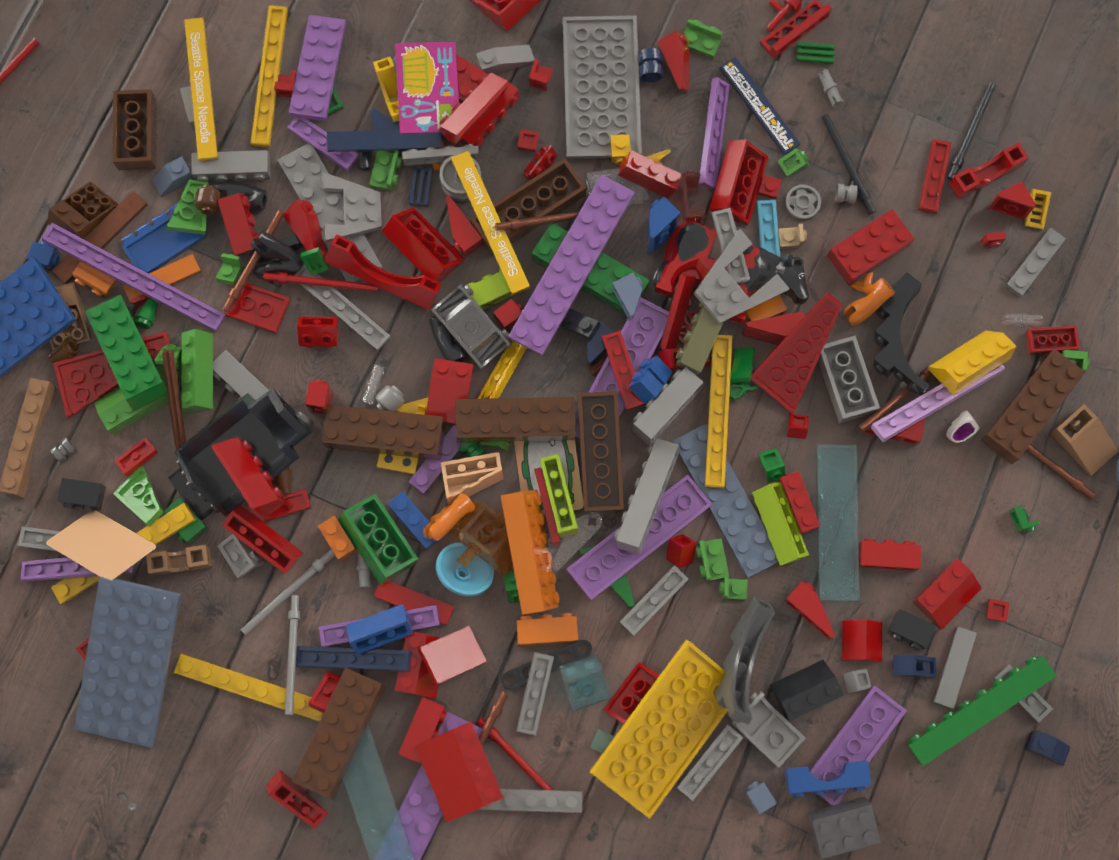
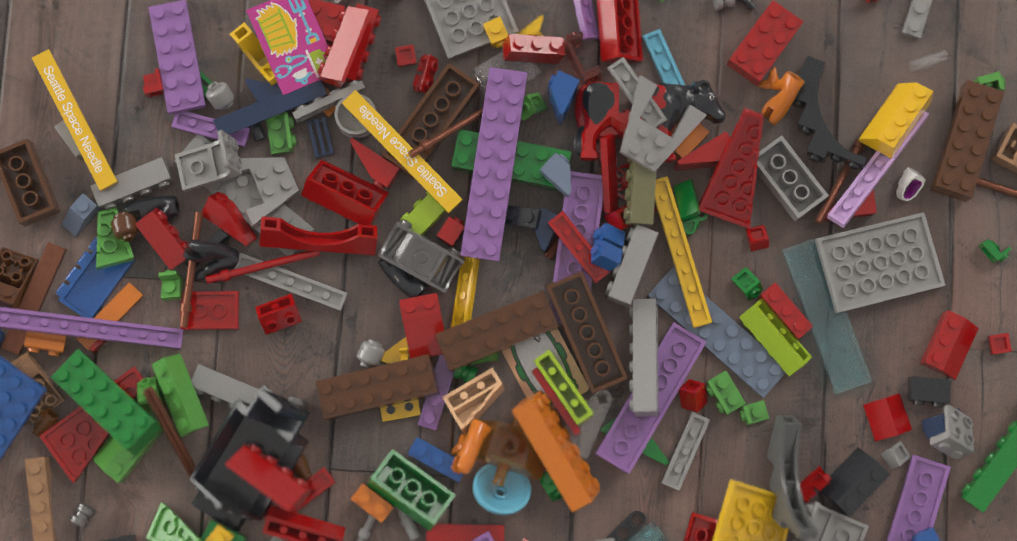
camera: 20 degrees left, 5 degrees up
(136, 456) = (153, 496): red plate -> none
(146, 315) = (109, 356): green cone -> none
(268, 76) = (133, 81): yellow tile -> none
(308, 170) = (209, 163): none -> light grey bracket
(314, 261) = (249, 248): green bracket -> none
(318, 397) = (304, 376): red brick -> none
(342, 115) = (220, 95): none -> light grey head
(373, 384) = (349, 344): clear pin -> none
(547, 629) = (598, 515): orange brick -> none
(630, 226) = (532, 105): none -> bright green bracket
(767, 675) = (815, 480): none -> red hinge
(770, 187) = (649, 18): red plate -> none
(792, 237) = (688, 59): tan bracket -> none
(803, 202) = (685, 21): light grey wheel -> none
(809, 606) = (828, 403): red slope -> none
(889, 555) = (885, 328): red brick -> none
(907, 490) = (880, 262): none -> light grey plate
(924, 682) = (958, 437): none -> light grey bracket
(954, 667) = (980, 408): light grey tile -> none
(1049, 338) = (963, 69): red piece -> none

